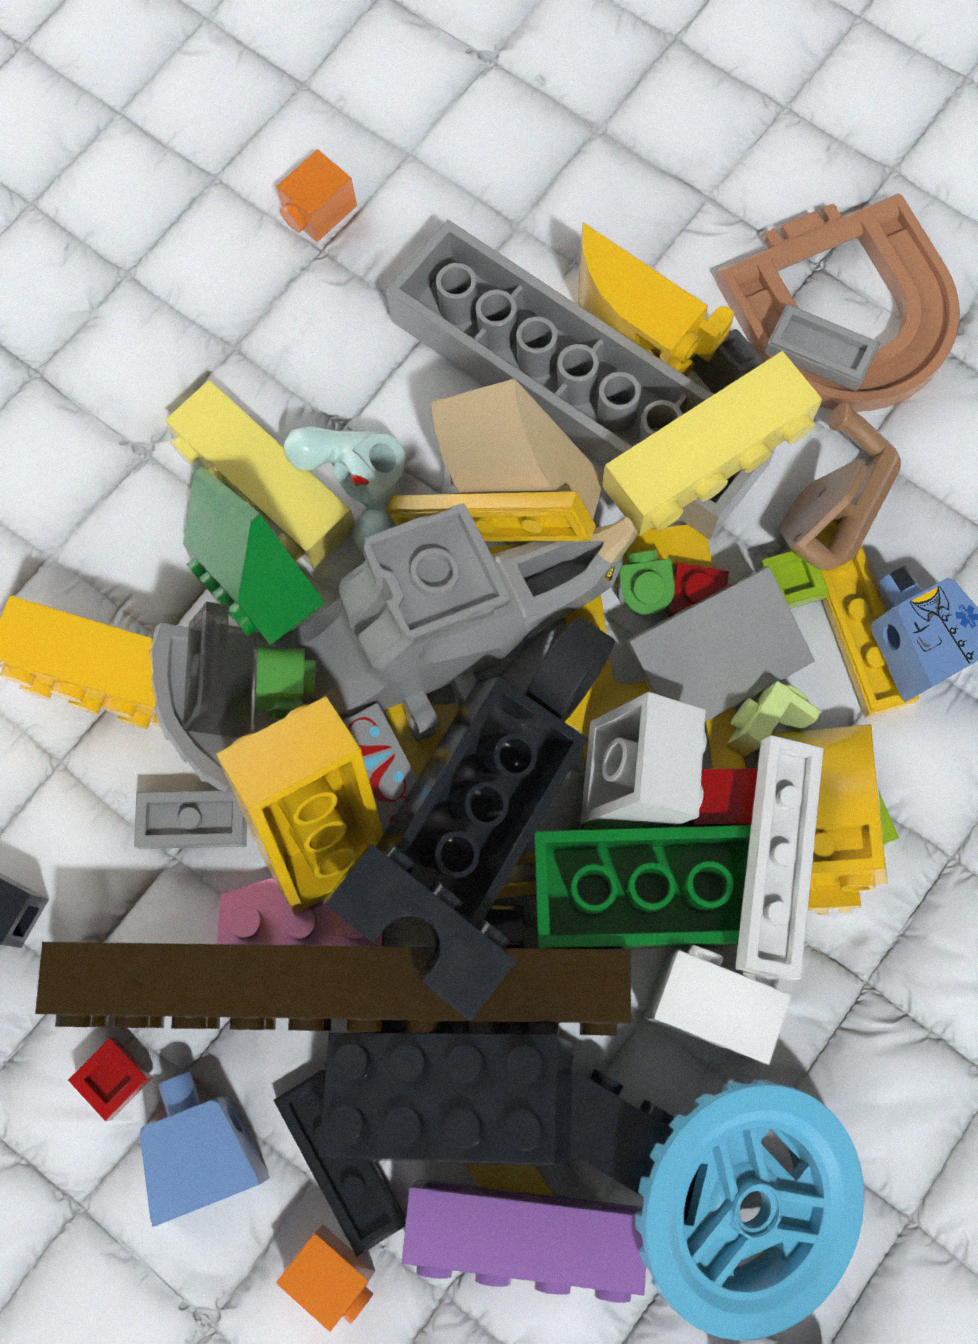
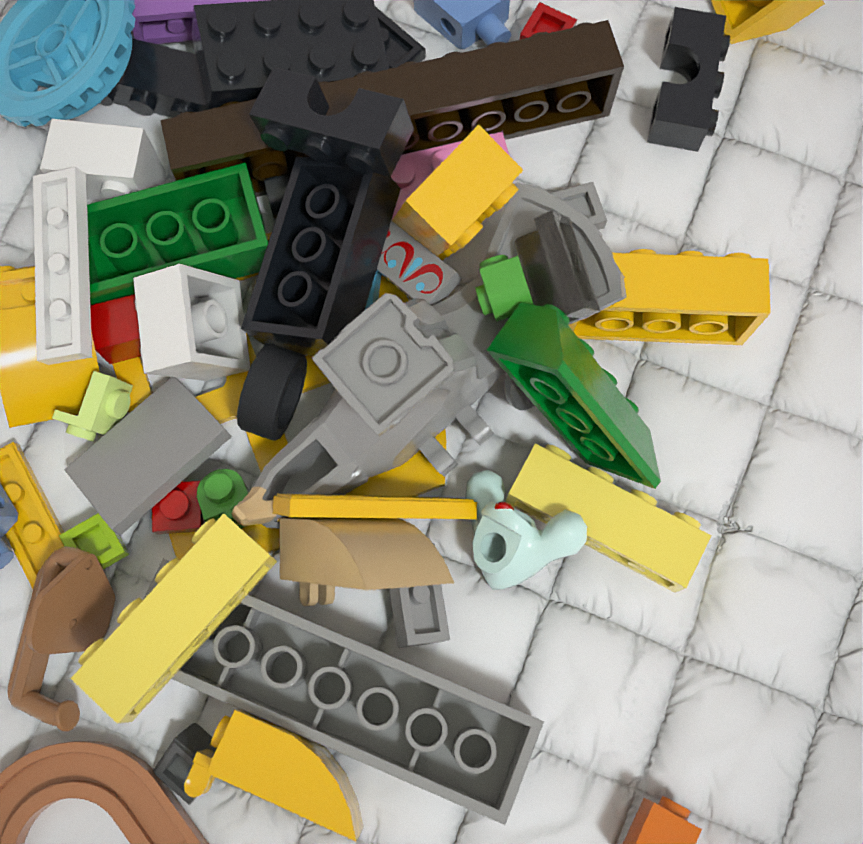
camera: 160 degrees right, 0 degrees up
(822, 347) = (94, 791): light grey tile -> none

